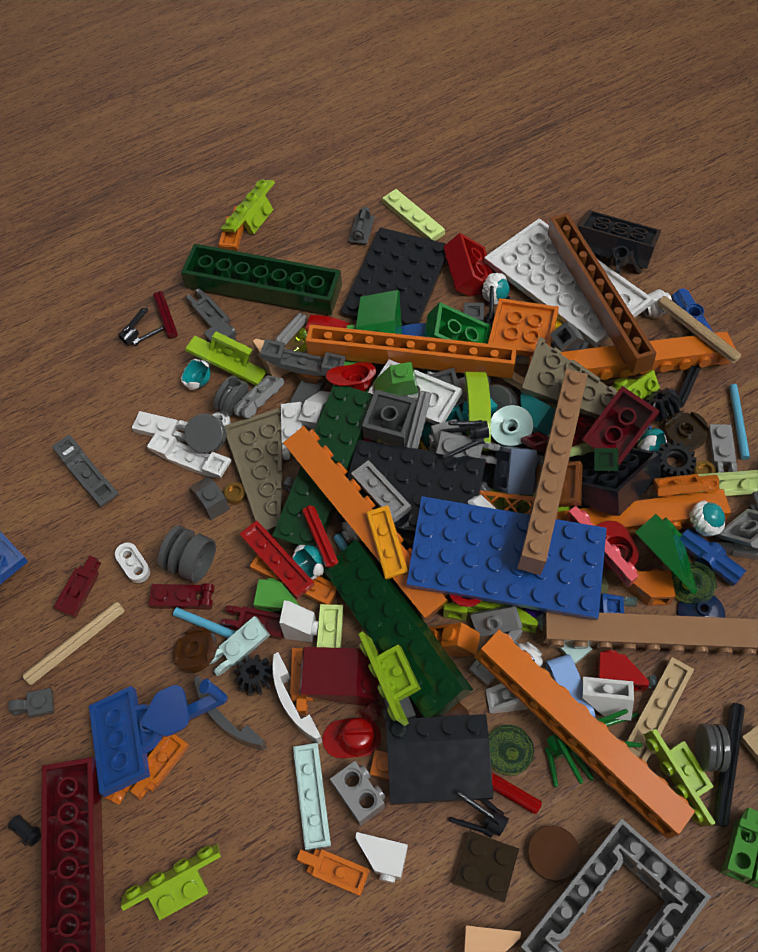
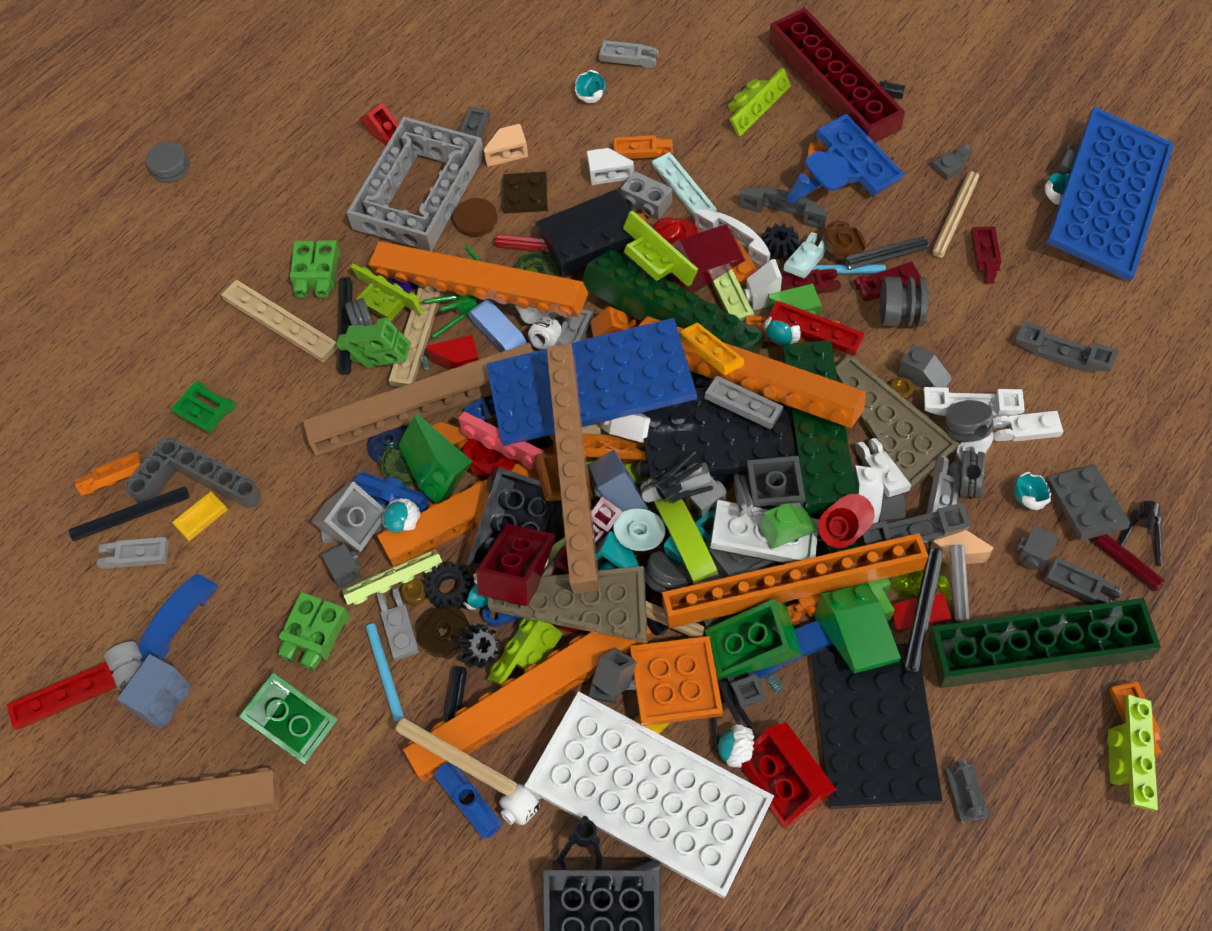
camera: 160 degrees right, 0 degrees up
(132, 564) = (953, 288): white plate -> none
(163, 356) = (1087, 502): none -> dark grey plate
(164, 621) = (886, 252): none -> black axle
(228, 356) = (1015, 515): lime bracket -> none
(320, 536) = (782, 345): red axle -> none
(327, 317) = (923, 610): none -> black axle
(413, 215) = (909, 846): yellowish green plate -> none
(494, 820) = (528, 216): black plant -> none
(601, 294) = (600, 757): dark orange brick -> none
(606, 459) = (521, 516): dark green plate -> none
(609, 695) = (461, 324): white slope -> none
(685, 484) = (433, 541): orange hinge -> none
(705, 701) = (375, 344): none -> bright green hips

